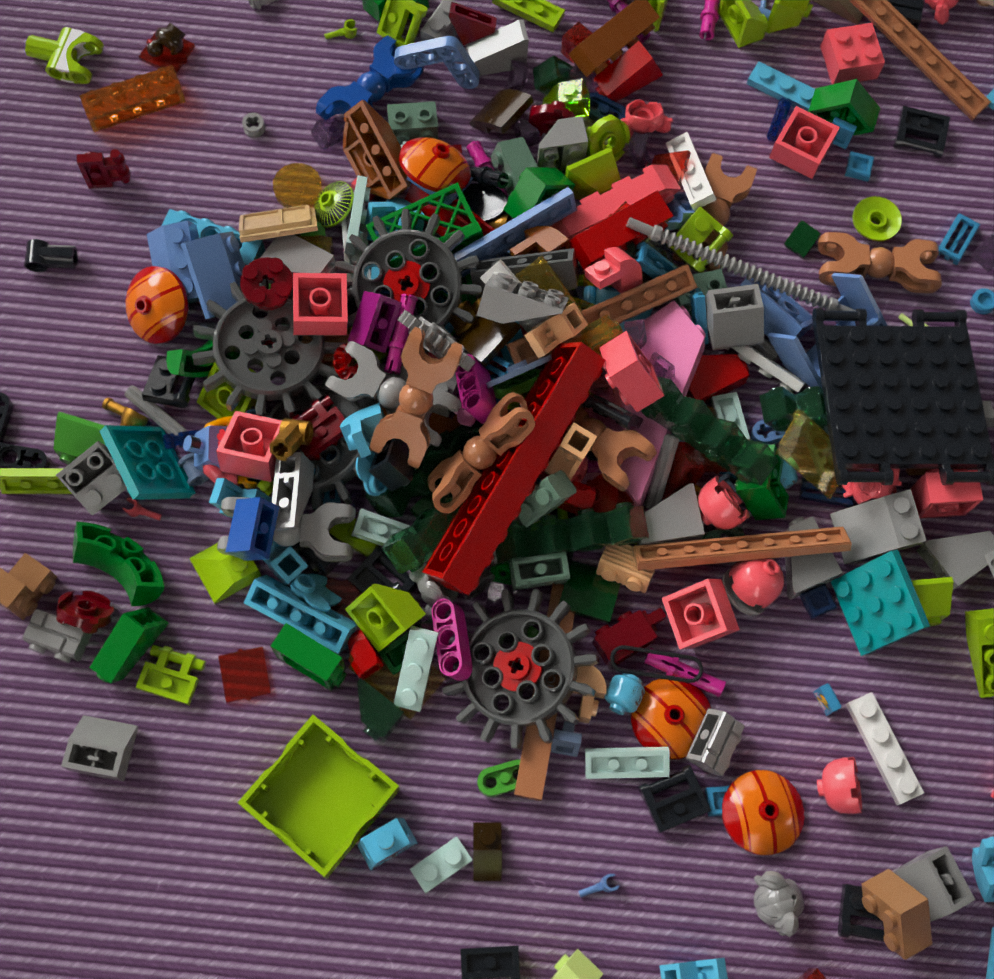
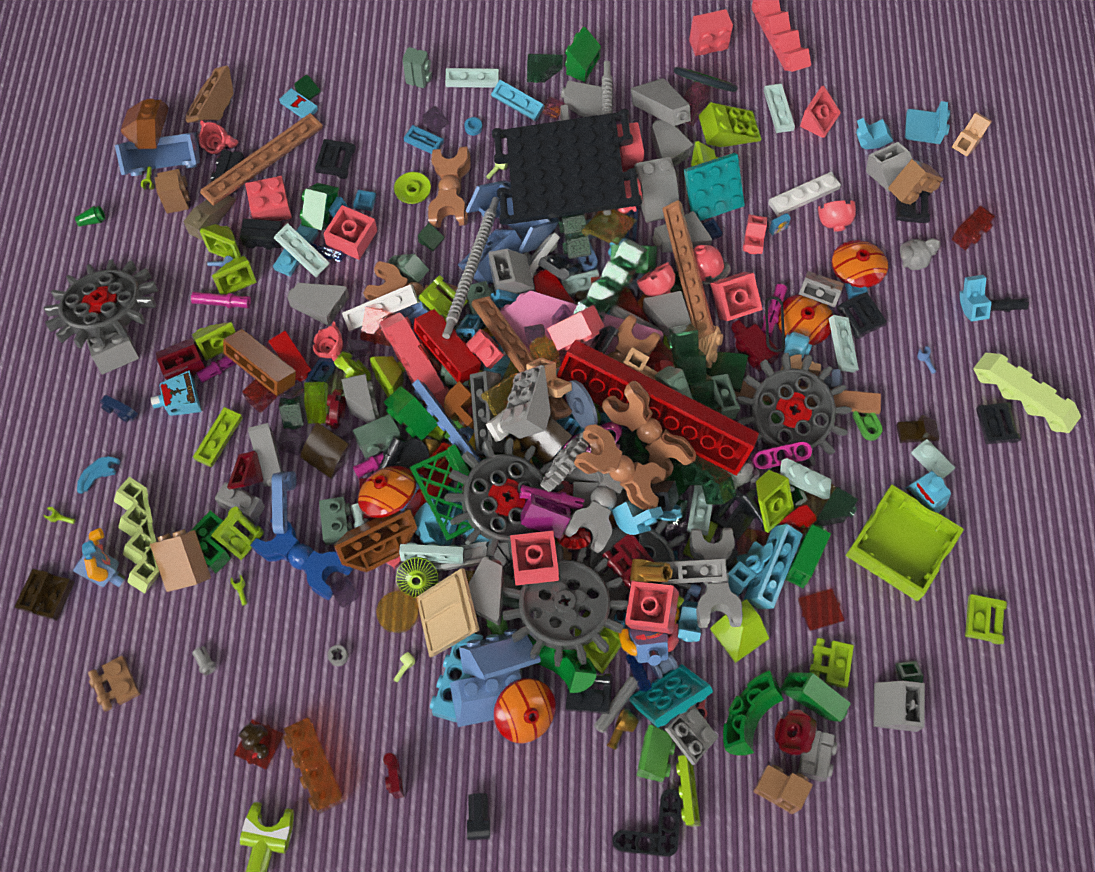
camera: 90 degrees left, 5 degrees down
(144, 774) = (909, 672): none -> dark green slope
(205, 883) = (979, 618): none -> lime plate
(238, 195) = (408, 661): none -> yellowish green hand
(252, 529) = (730, 591): blue brick -> none
(258, 295) = (511, 616): dark red plate -> none
(705, 109) = (318, 300): none -> light grey slope
(753, 208) = (409, 267): none -> sand green slope
(756, 382) = (560, 266): none -> black plate
(776, 87) = (301, 250): none -> light aqua plate
(804, 48) = (260, 233): none -> black brick
(804, 658) = (754, 234): none -> coral brick

